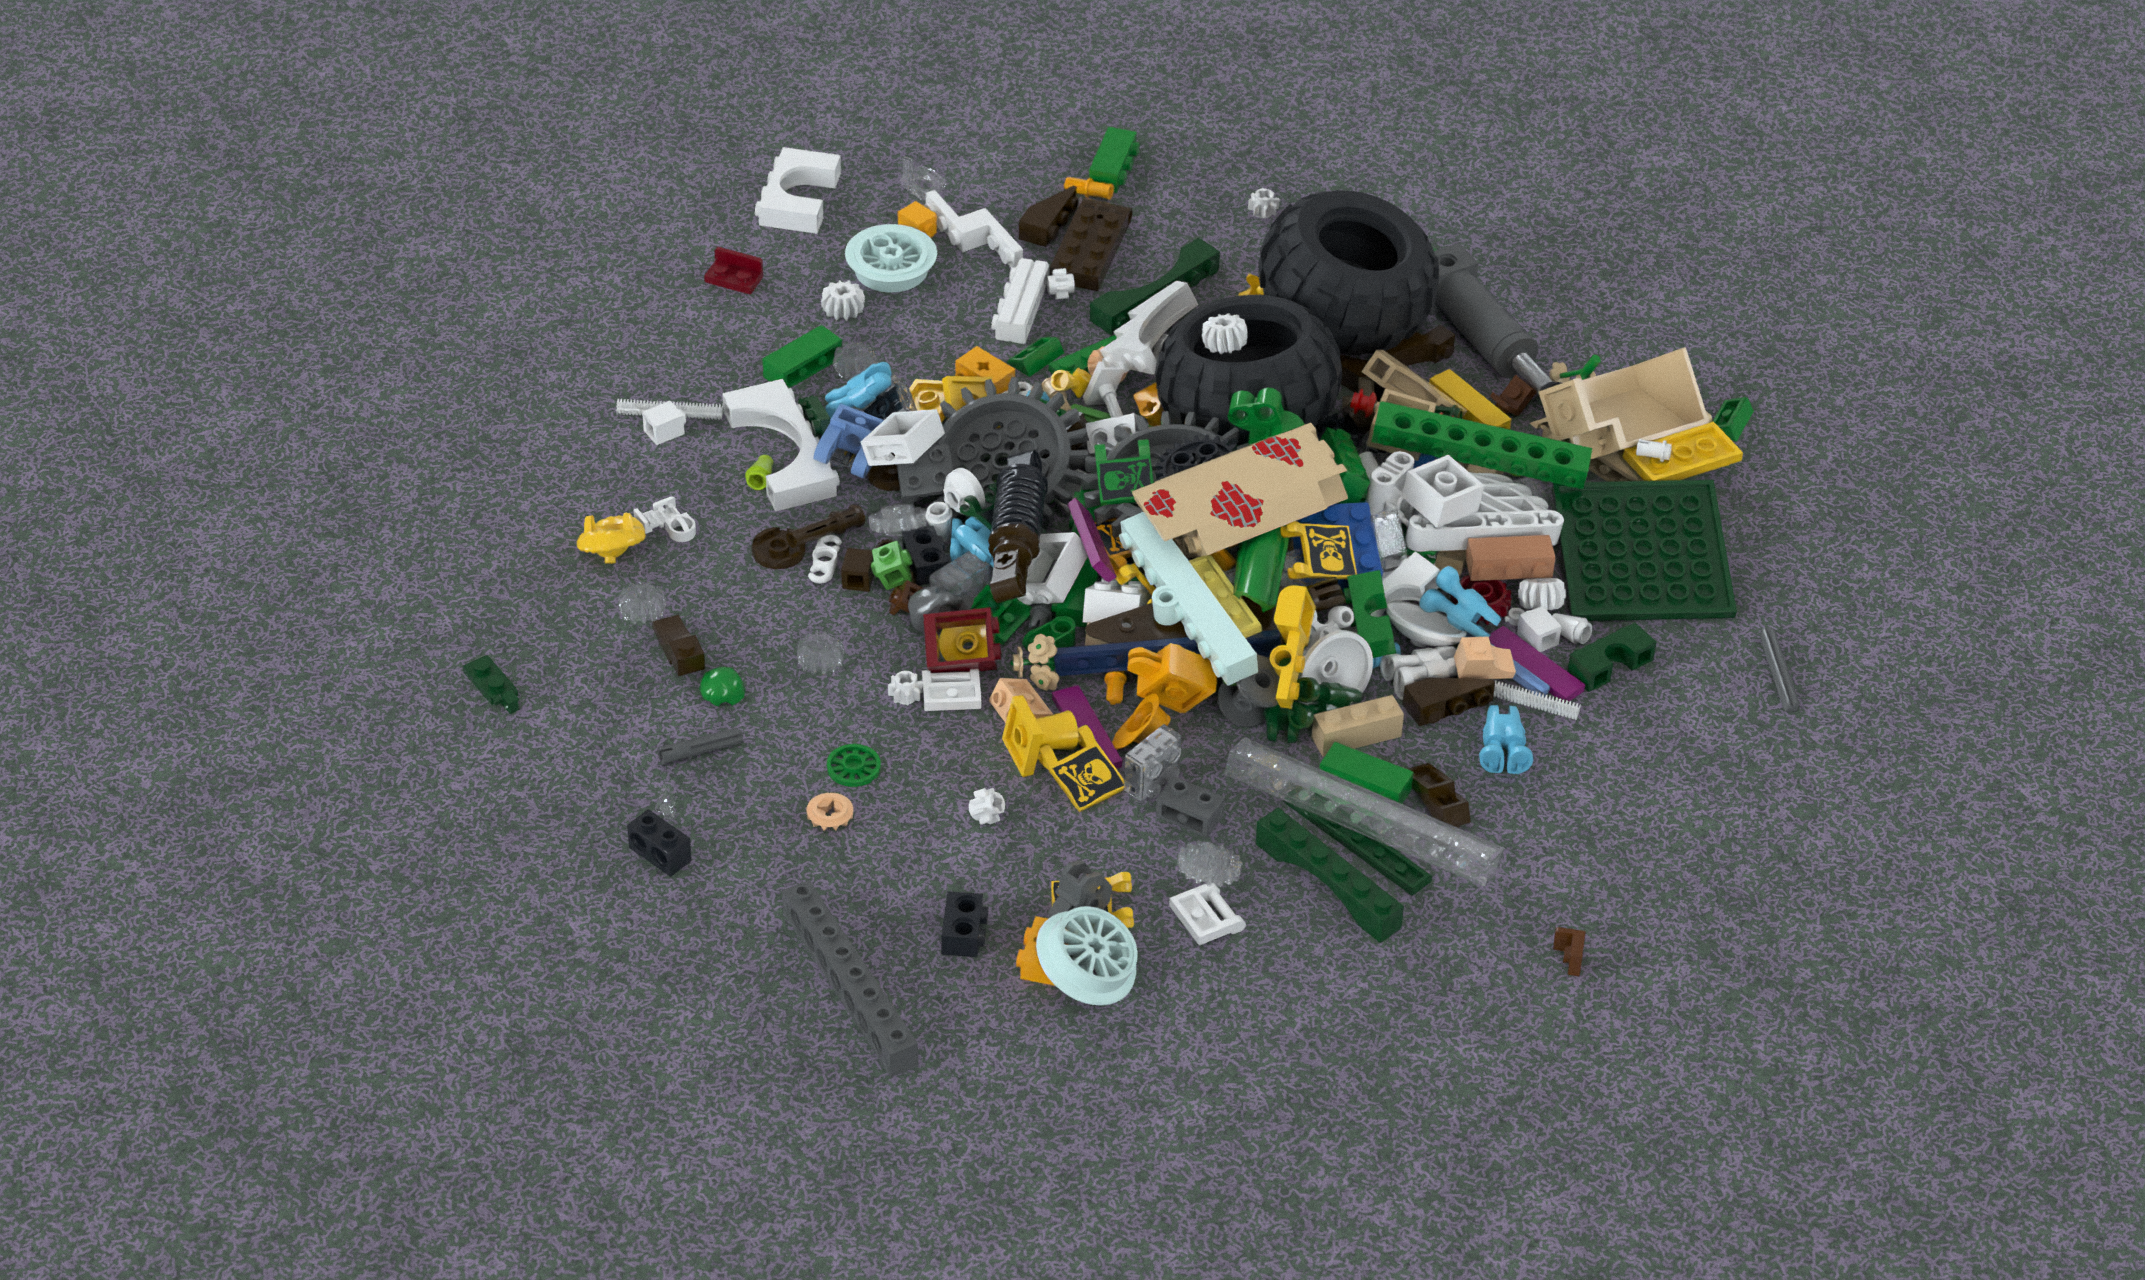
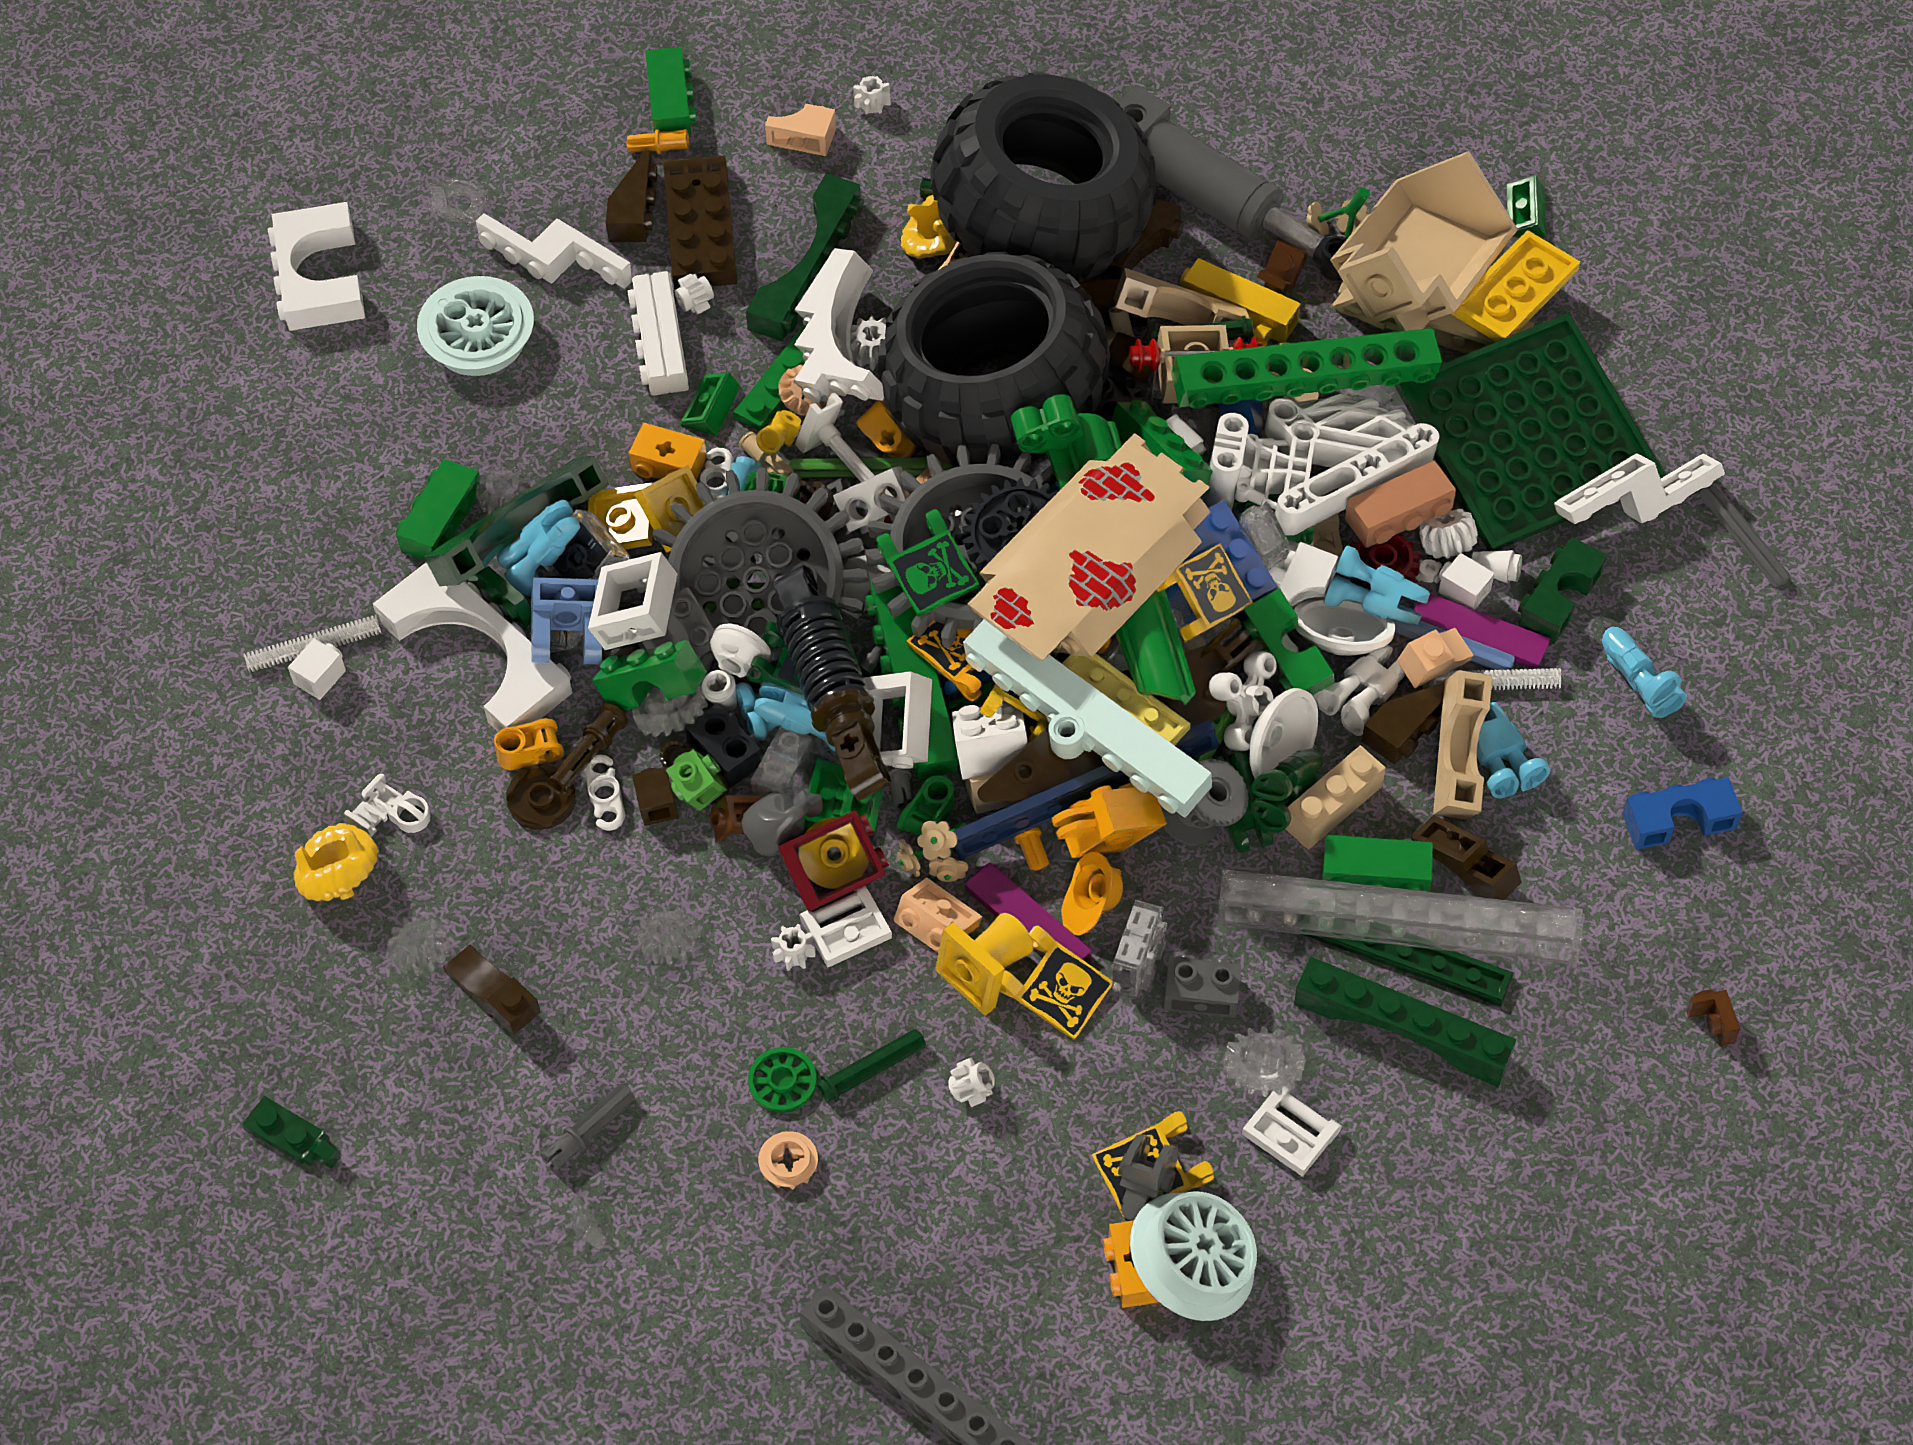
camera: 20 degrees left, 15 degrees up
(659, 842) = (611, 1294): black brick -> none
(721, 686) = (572, 1029): green hair -> none
(735, 271) = (295, 412): dark red bracket -> none
(757, 473) = (468, 697): lime cone -> none
(784, 511) = (529, 744): none -> light orange piece
(830, 376) = (482, 541): none -> dark green arch
(842, 300) = (447, 408): white gear -> none
(907, 487) = (628, 678): none -> green arch
(918, 217) = (482, 259): light orange brick -> none
(921, 776) = (870, 1065): none -> dark green axle
(963, 923) = (1018, 1265): black brick -> none
(1091, 540) = (930, 670): magenta tile -> none
(1200, 211) = (804, 131): none -> light nougat arch
(1224, 333) = (968, 336): white gear -> none
(1294, 621) = (1231, 714): yellow plate -> none
(1442, 491) = (1304, 455): white brick -> none
(1470, 719) = (1463, 712): none -> tan arch
(1643, 728) = (1658, 691): none -> medium azure piece
(1643, 818) = (1709, 803): none -> blue arch
(1654, 449) = (1490, 297): white pin -> none
(1707, 610) = (1639, 488): none -> white bracket

